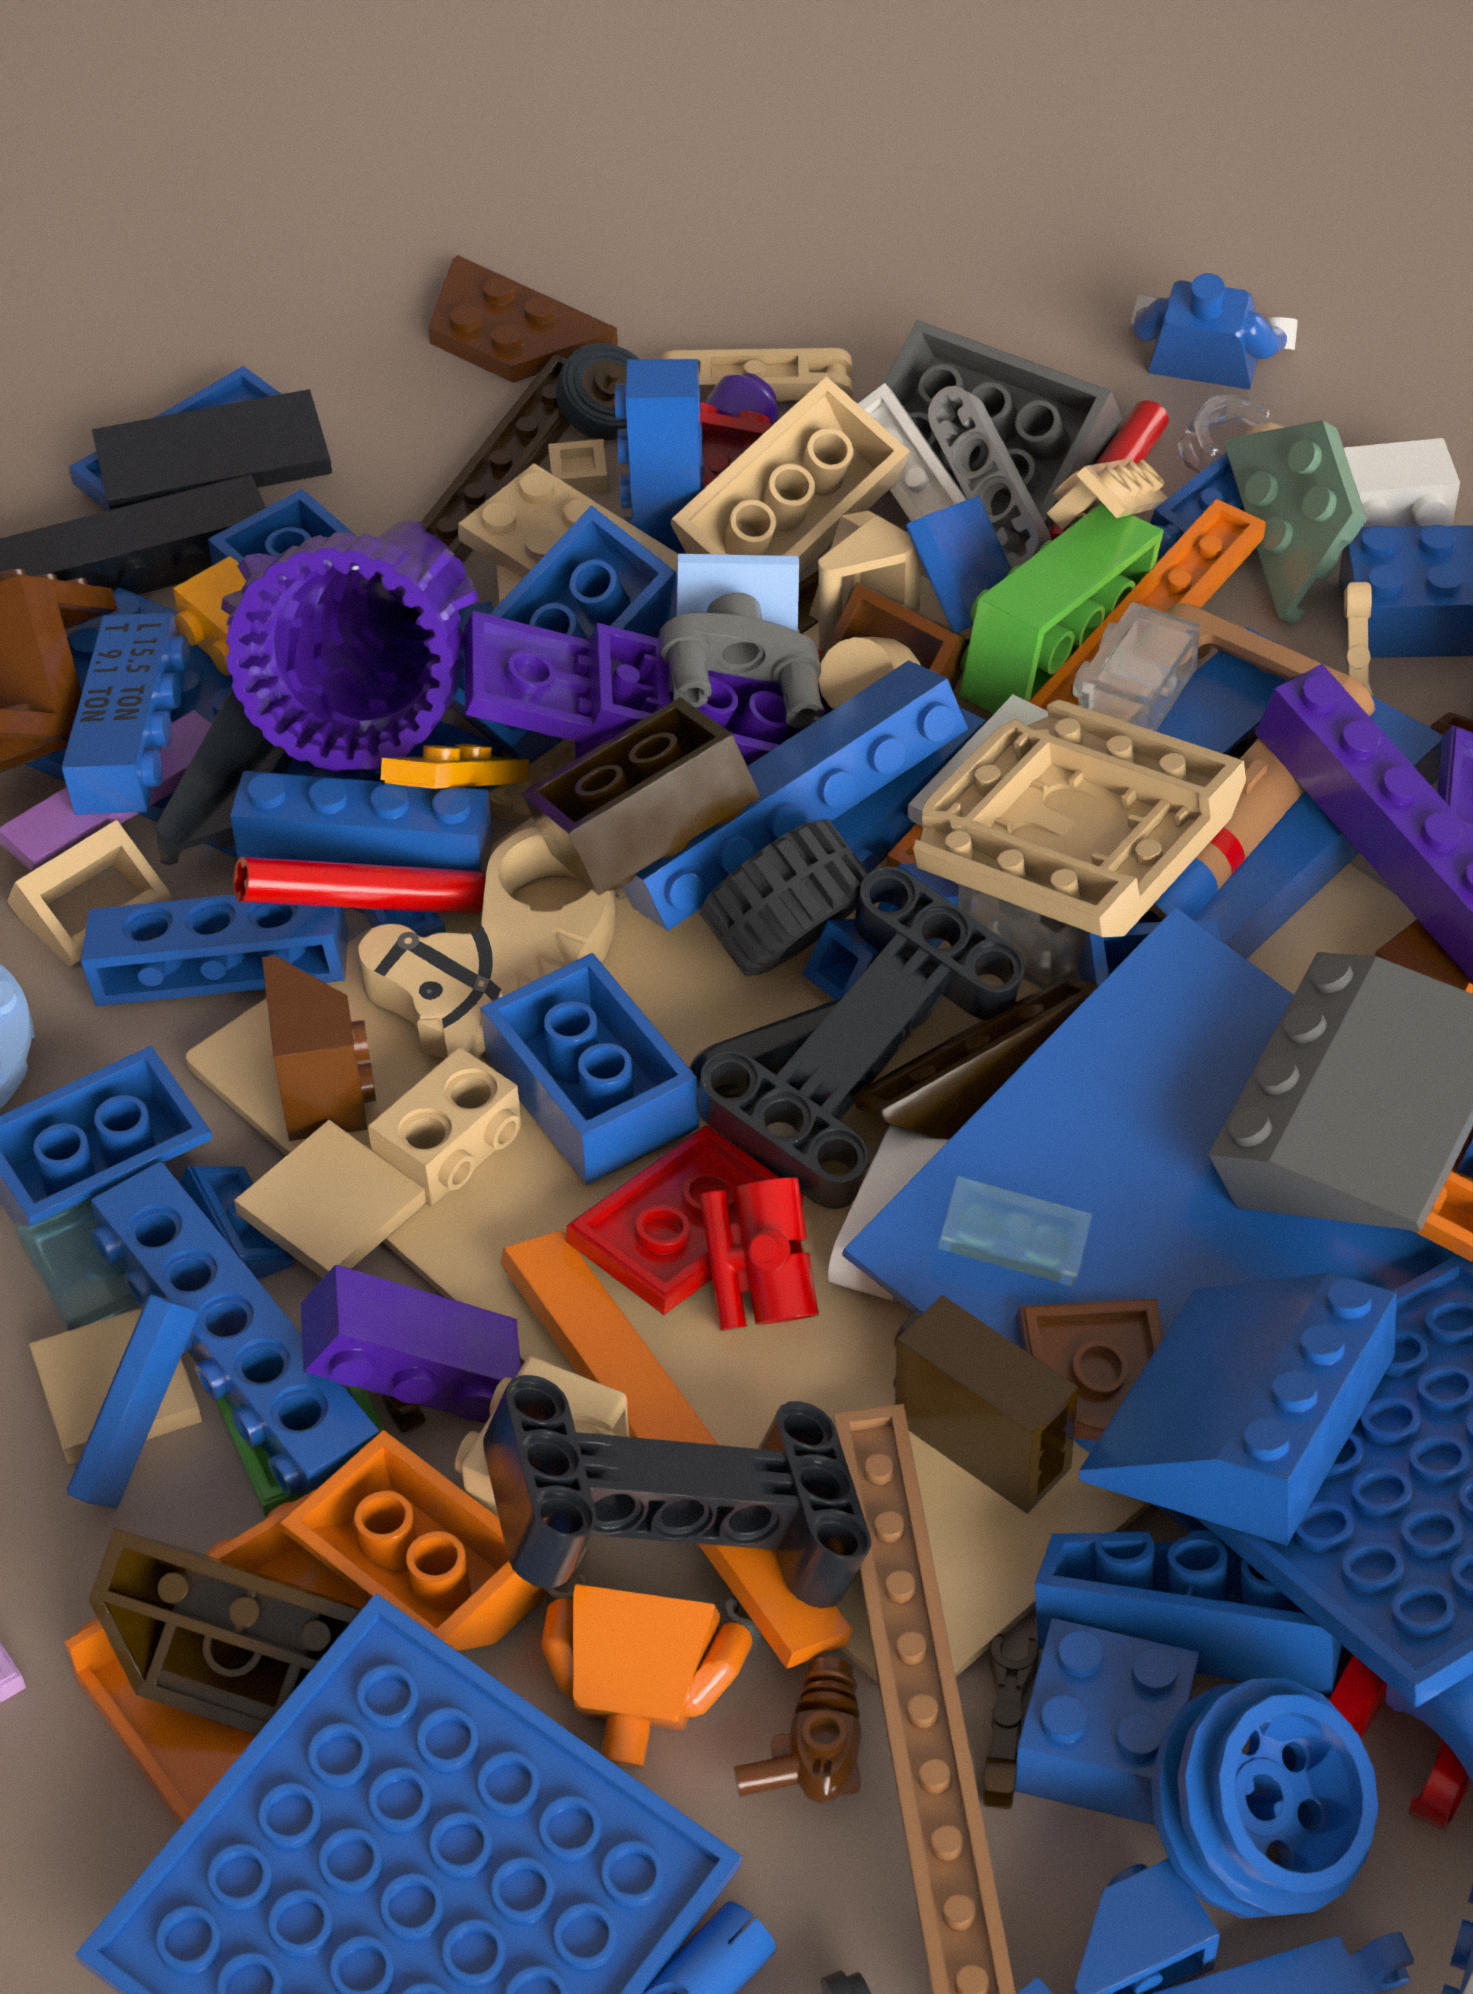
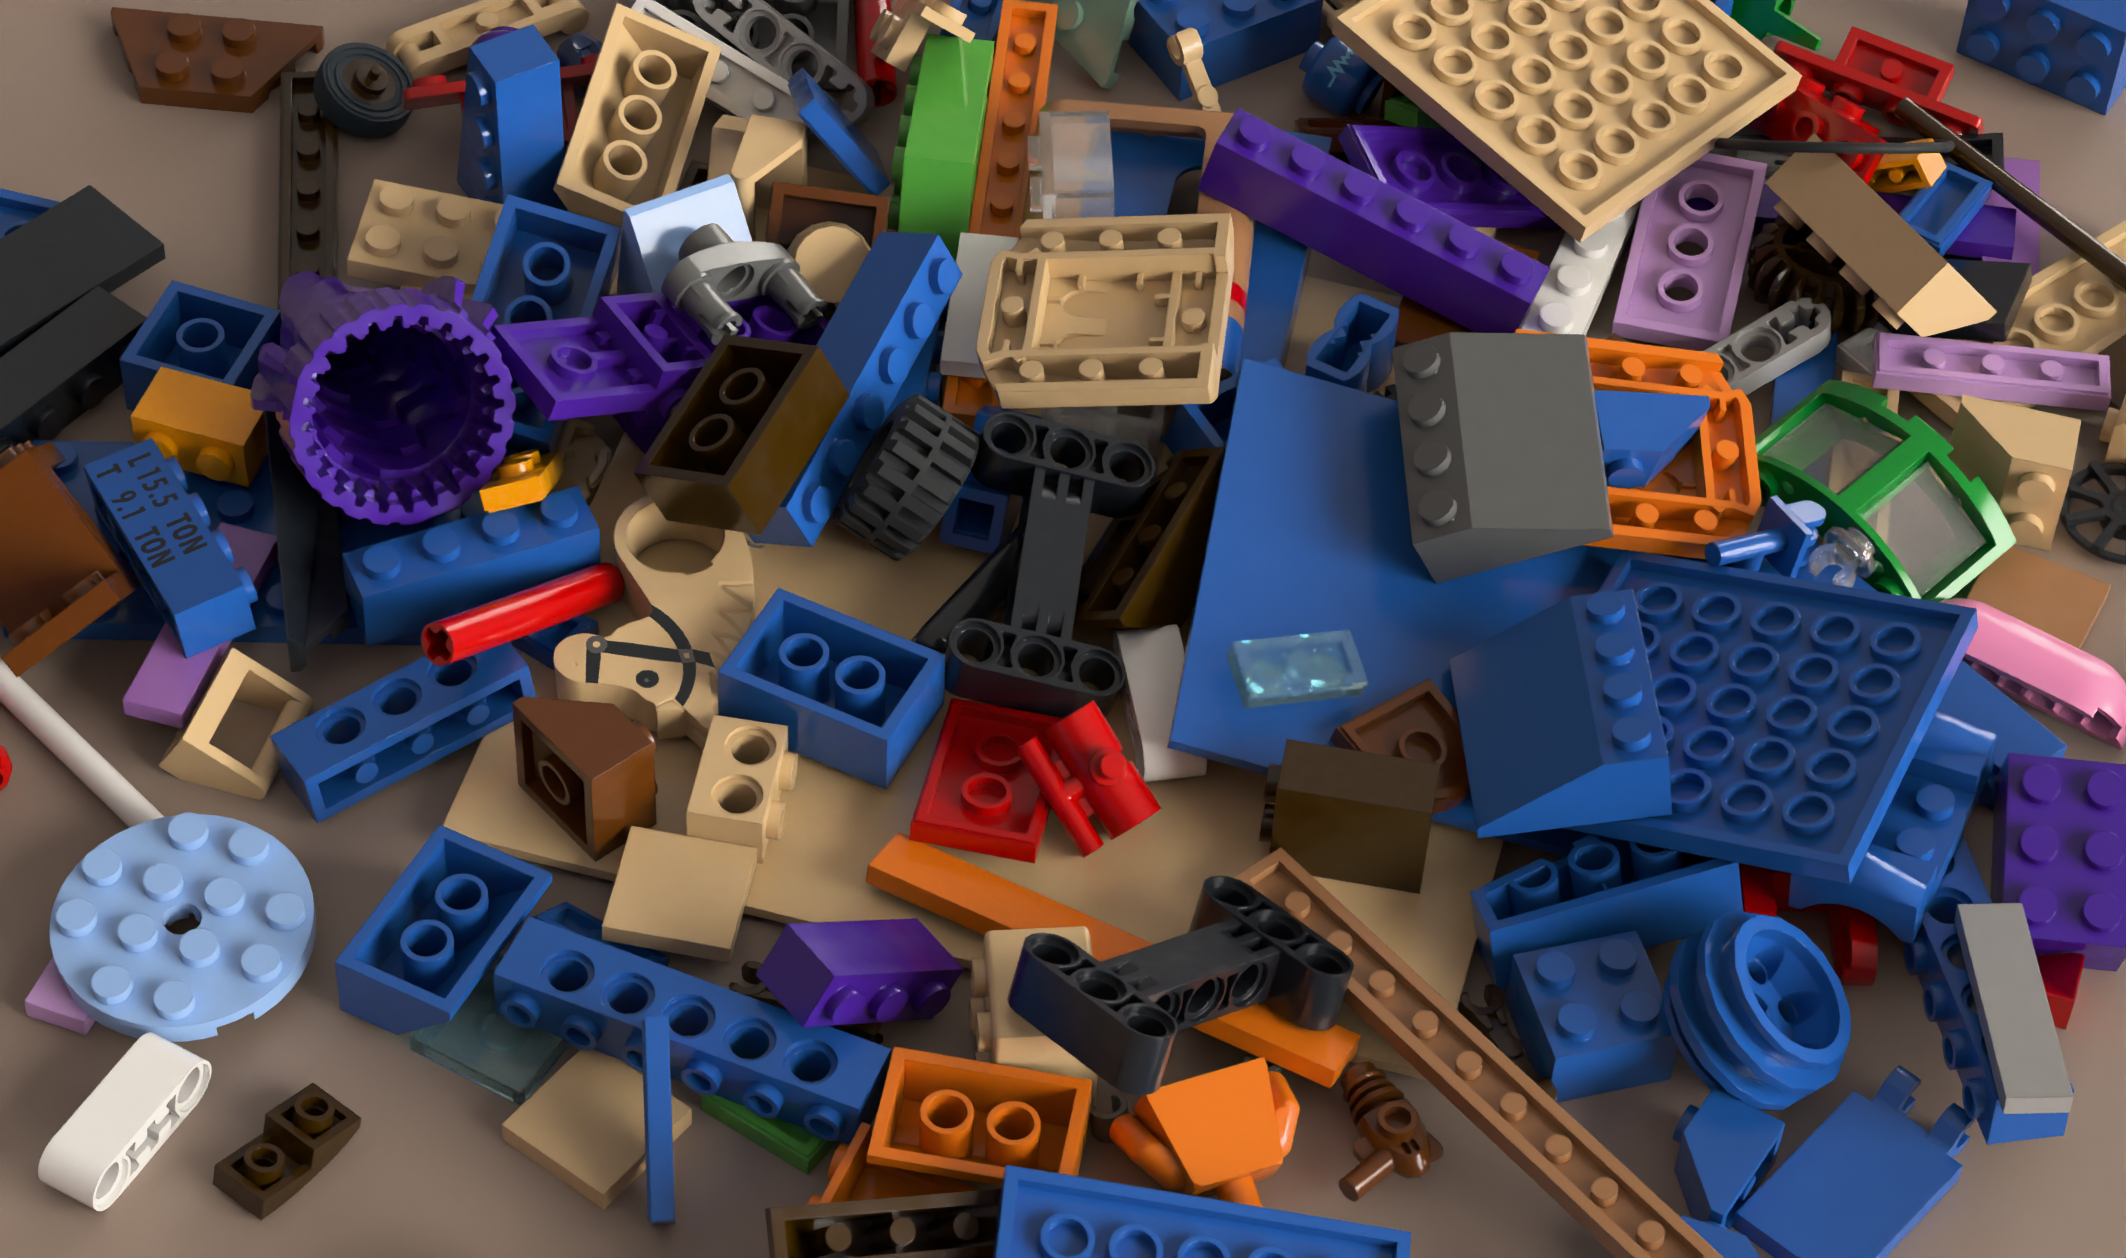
camera: 35 degrees left, 0 degrees up
(580, 465) = (382, 162): tan tile -> none
(1331, 926) = (1358, 347): none -> blue brick

